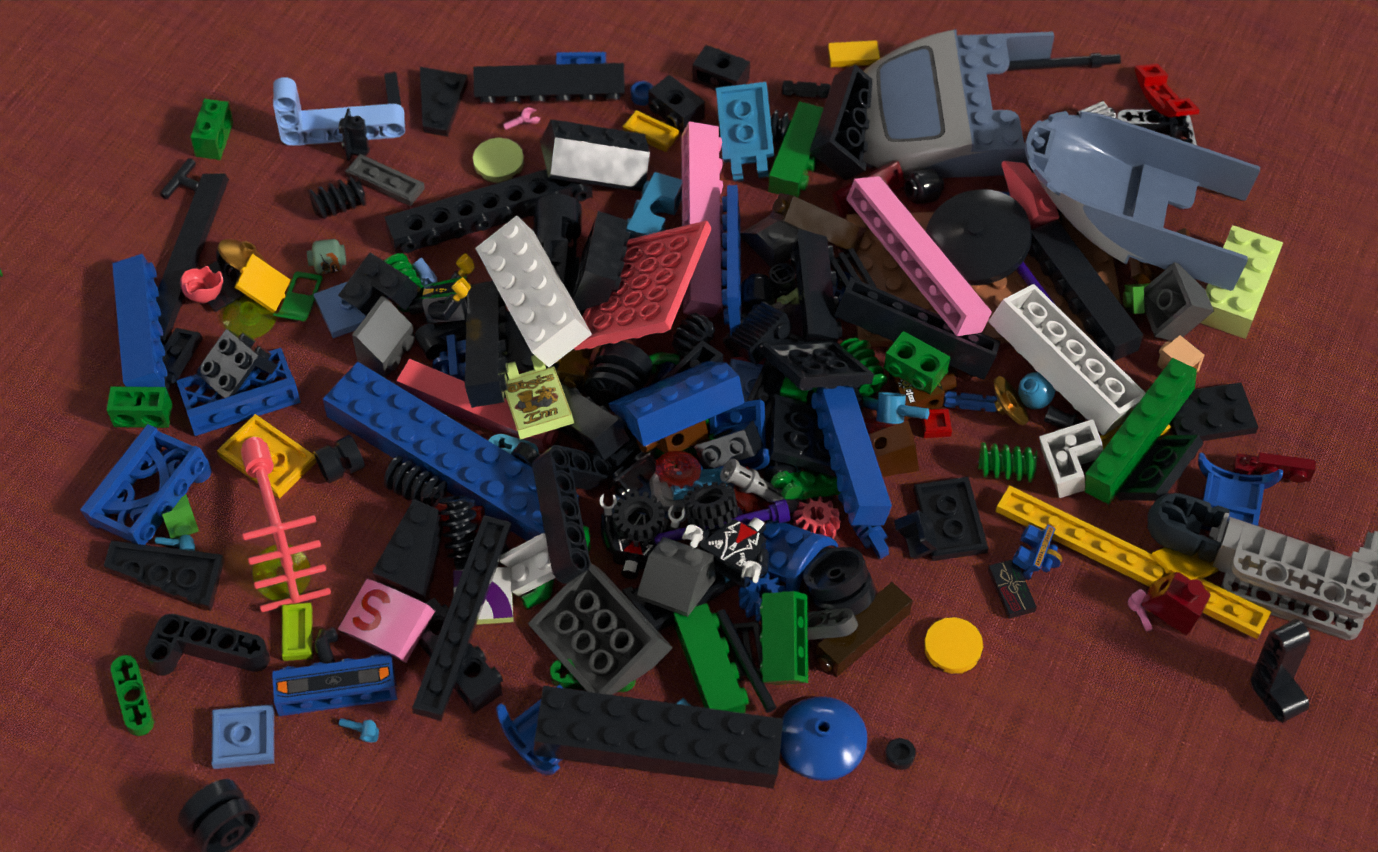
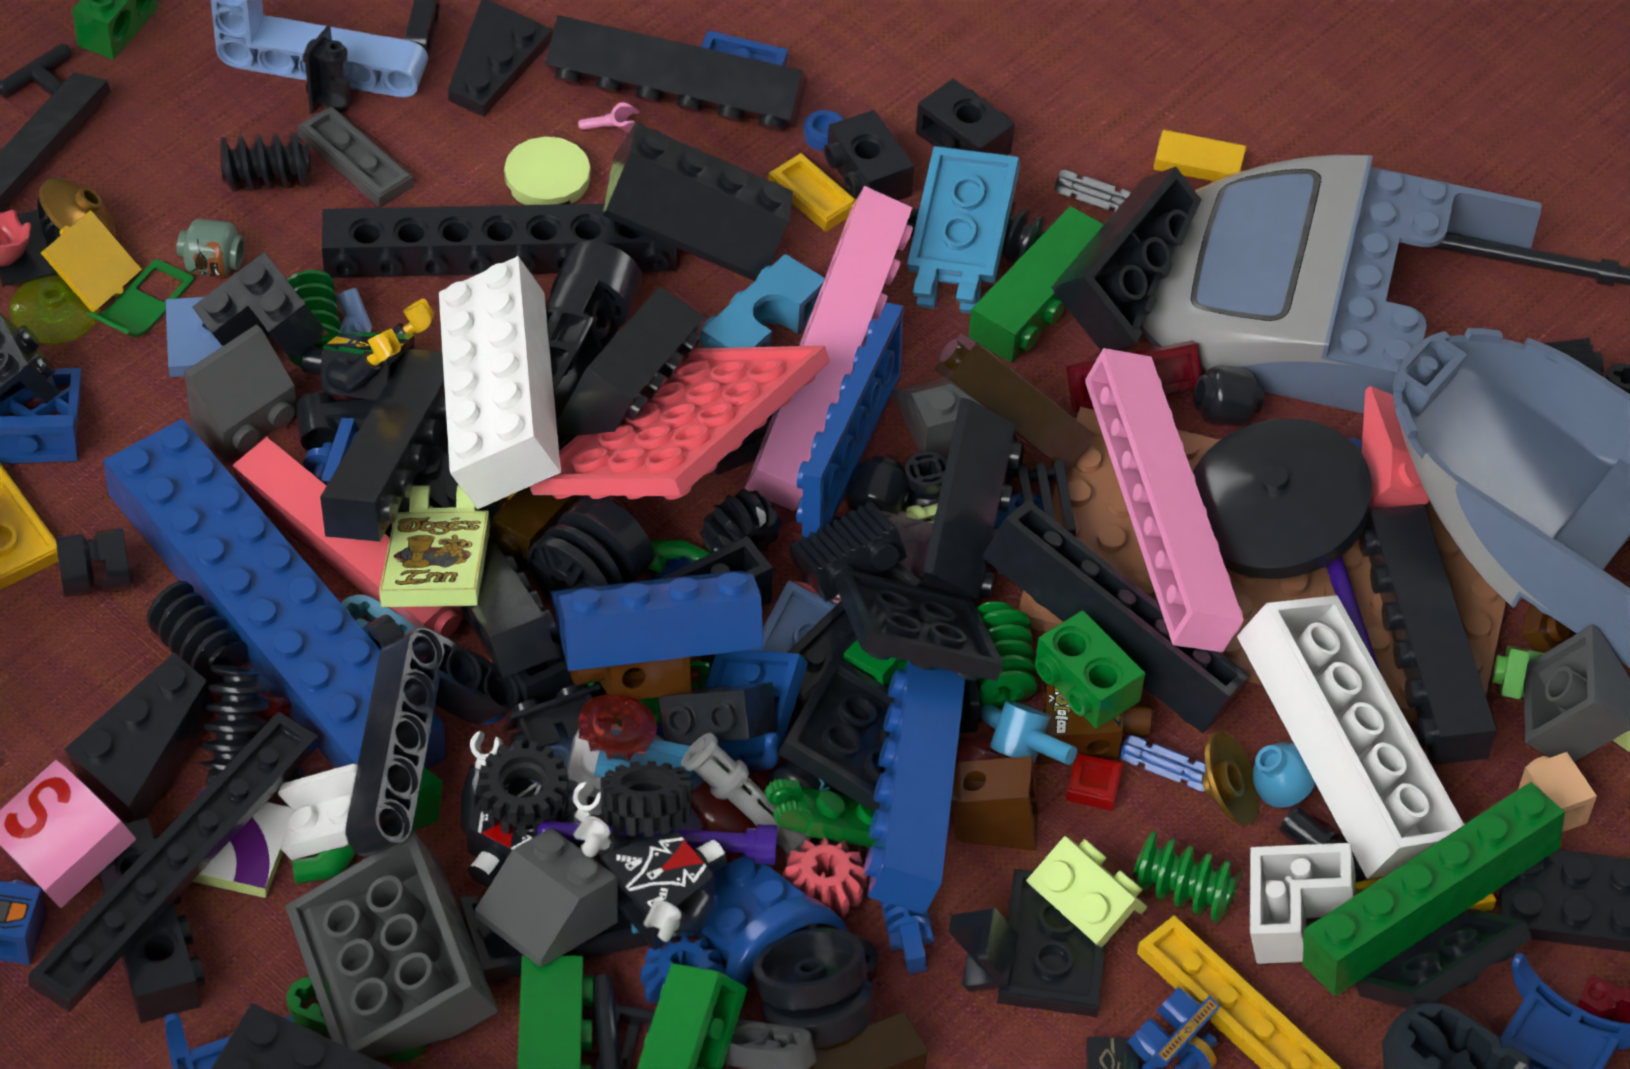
camera: 15 degrees right, 5 degrees down
(958, 485) = (1085, 890): none -> yellowish green bracket

